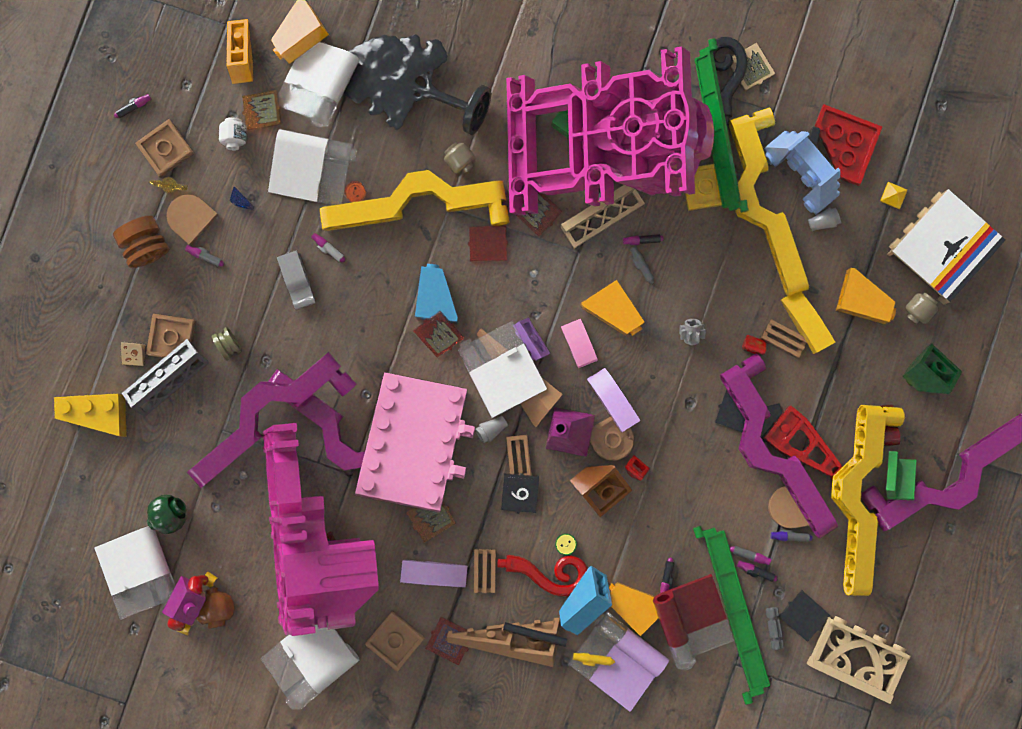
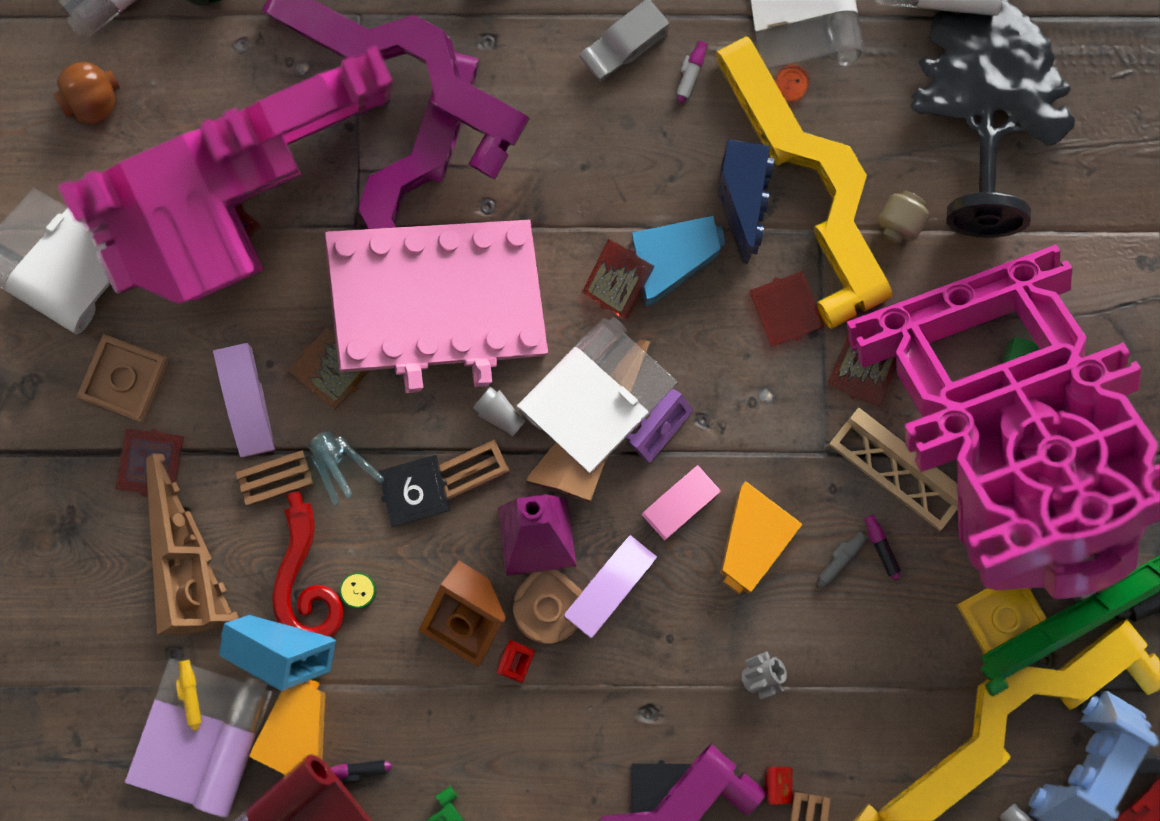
camera: 65 degrees right, 5 degrees down
(187, 601) = (82, 45): magenta torso -> none
(415, 245) = (741, 192): none -> dark blue slope
(481, 536) = (327, 454): none -> clear light blue plant
(535, 634) = (199, 590): black bar -> none

